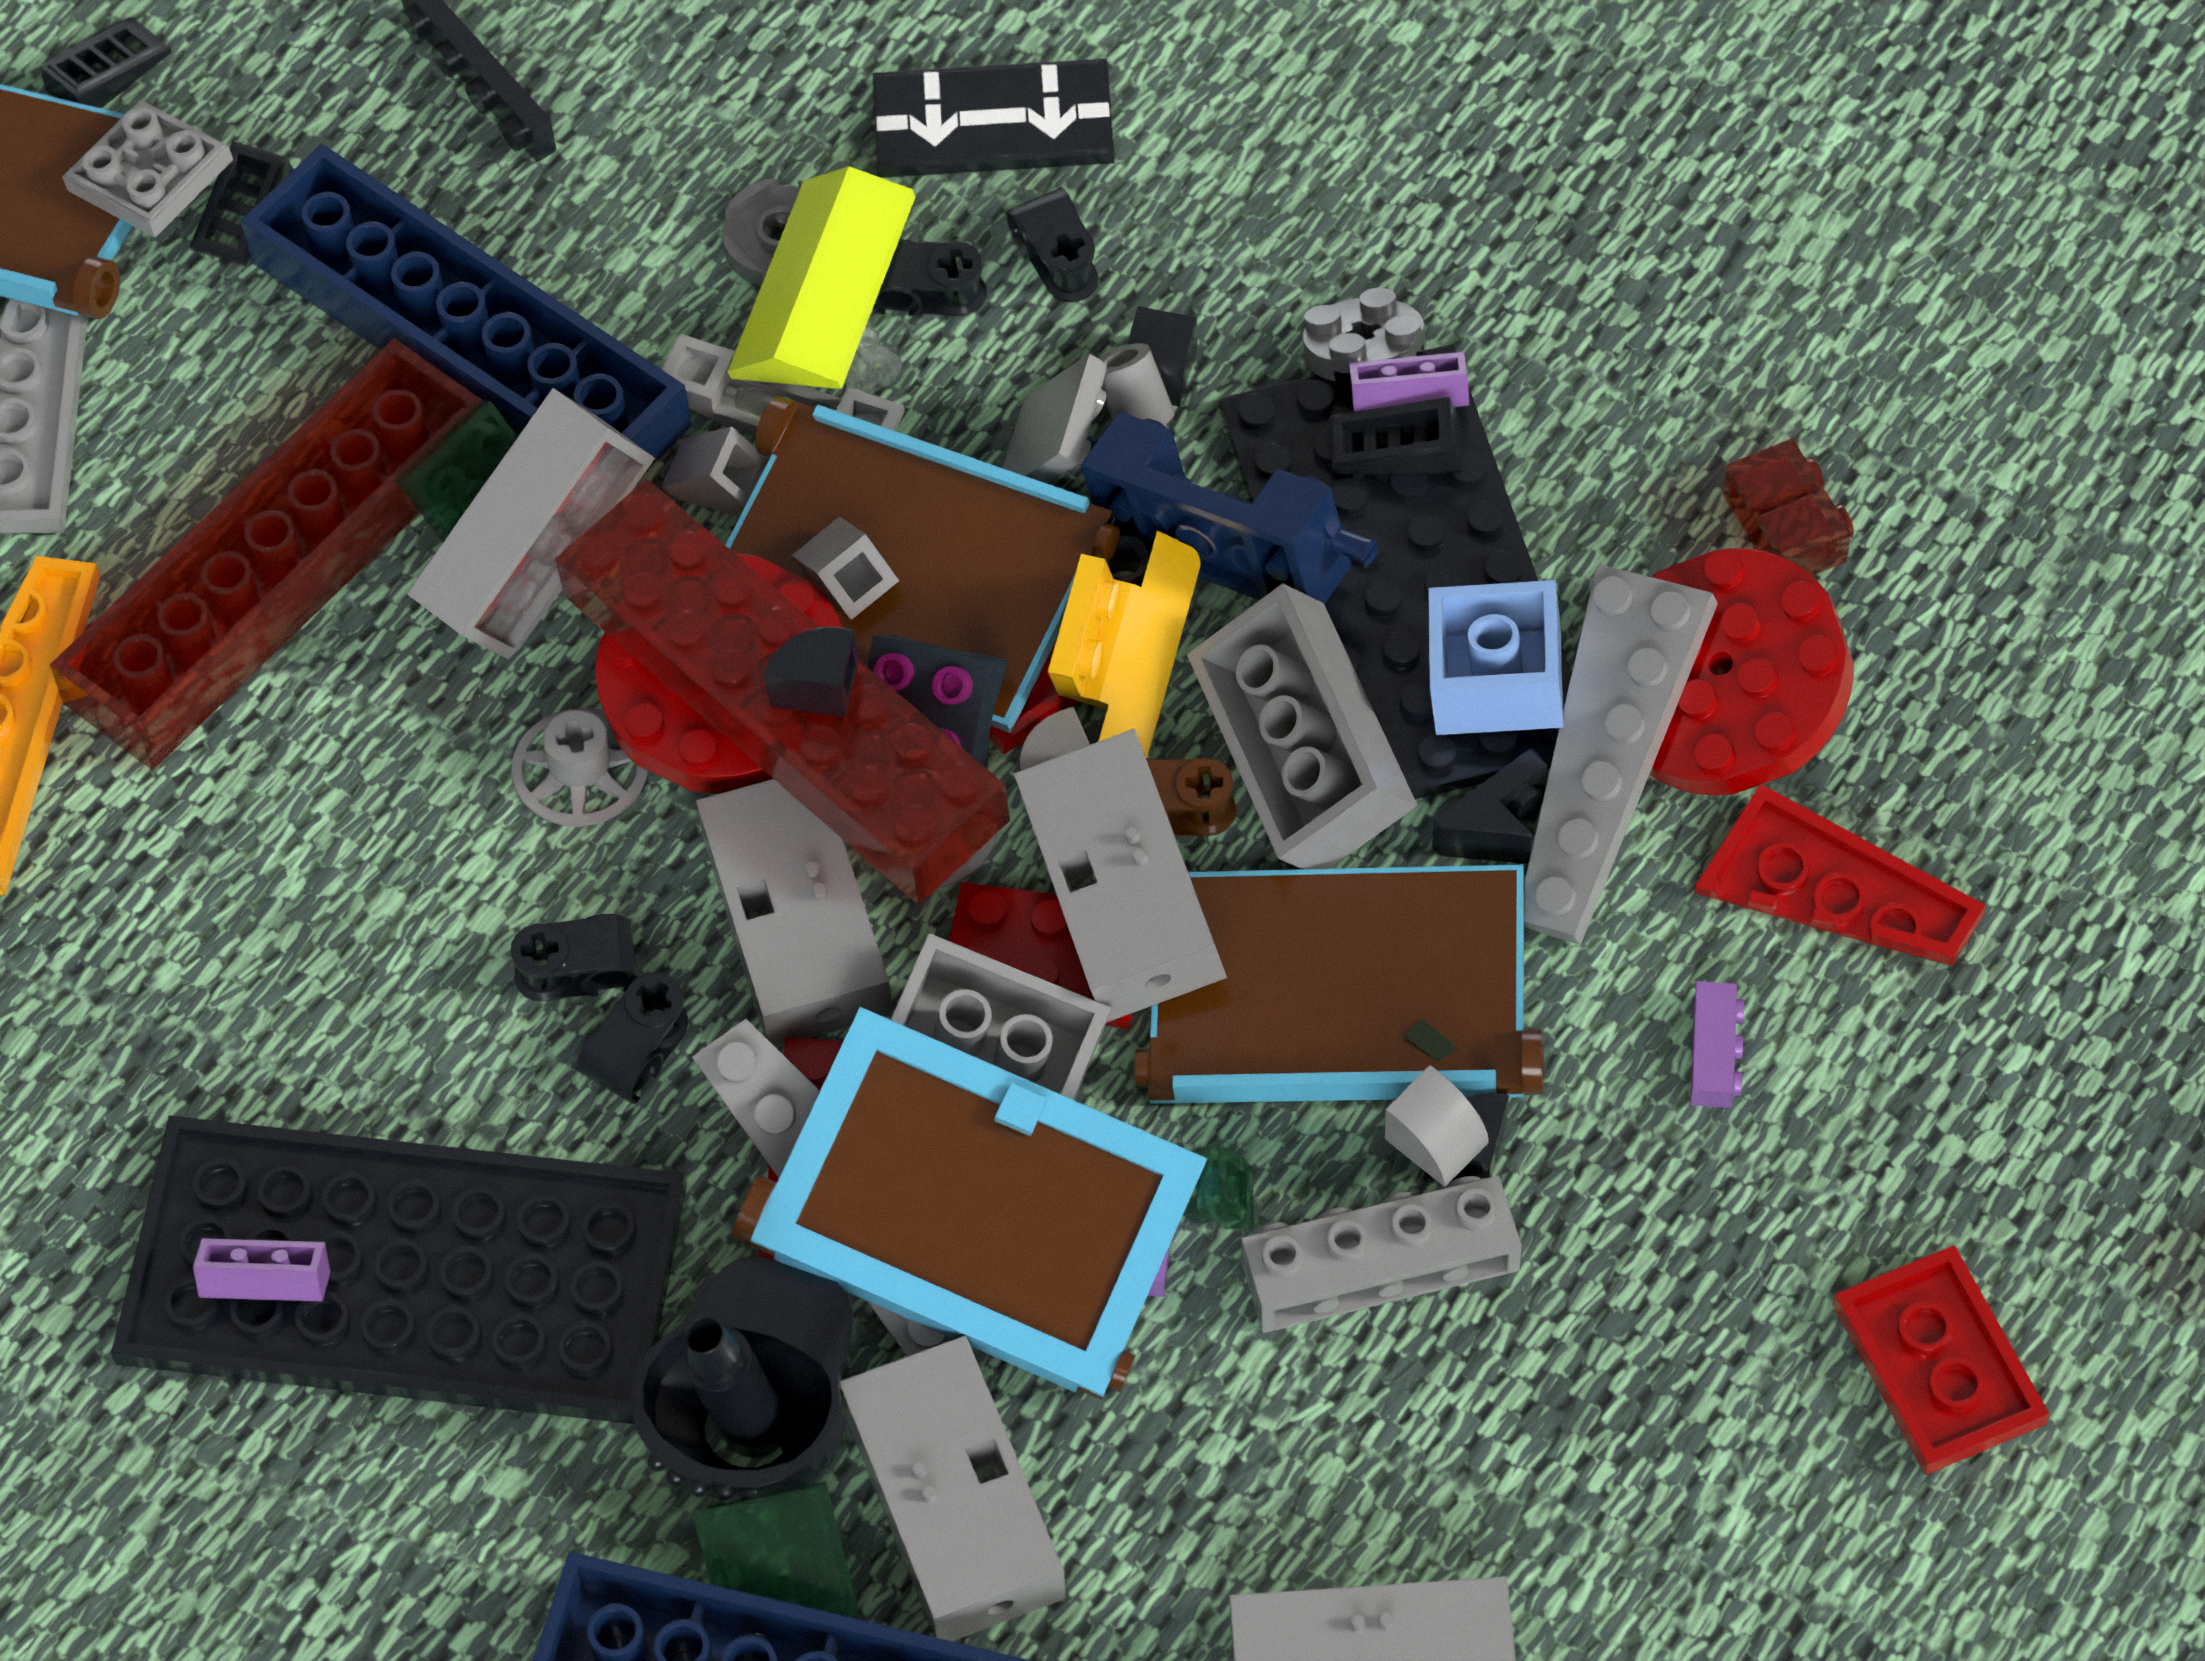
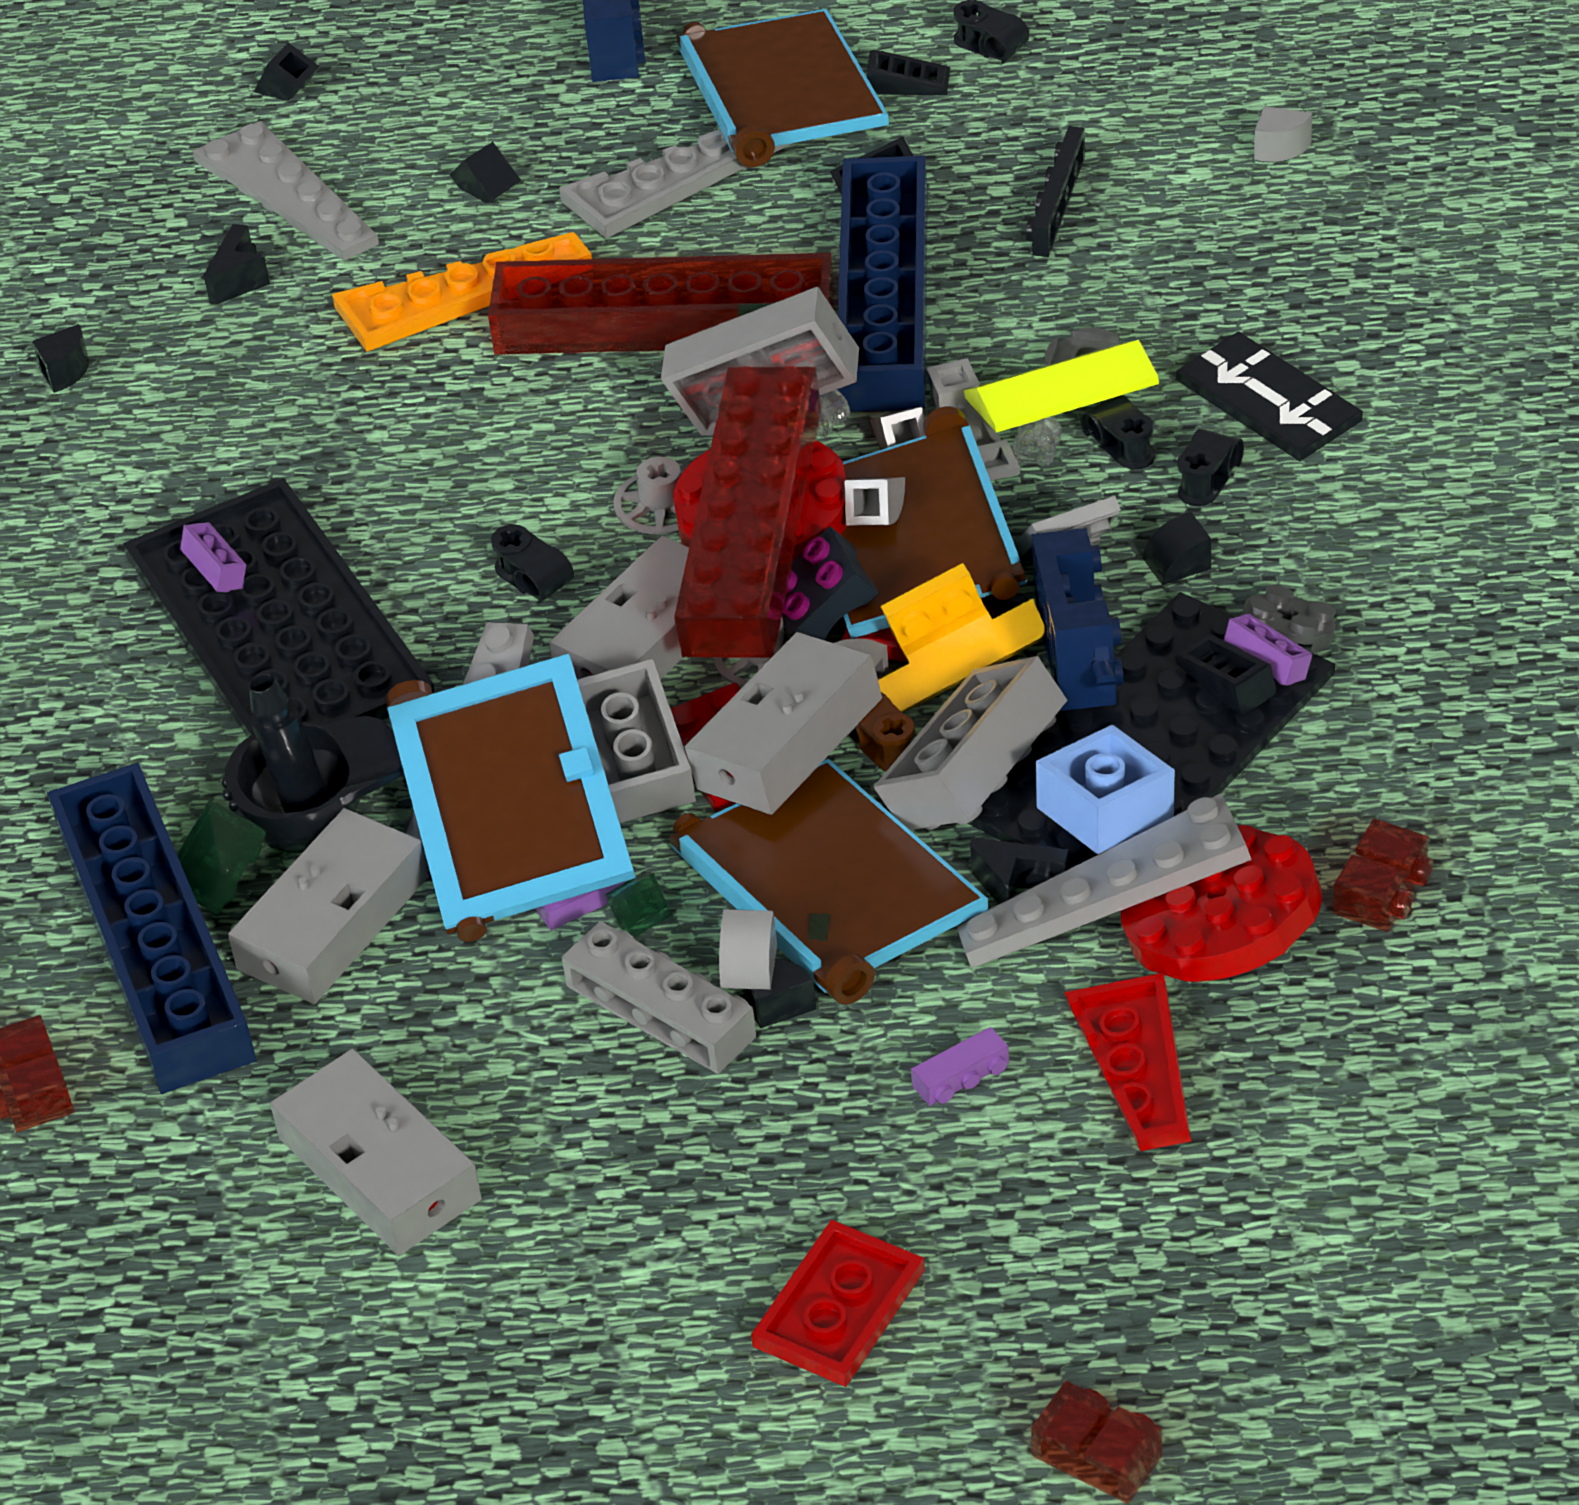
camera: 55 degrees right, 15 degrees down
(147, 168) = (844, 114): light grey tile -> none
(629, 1042) = (502, 606): black piece -> none
(814, 671) = (745, 488): black brick -> none
(1135, 384) = (1134, 549): light grey brick -> none

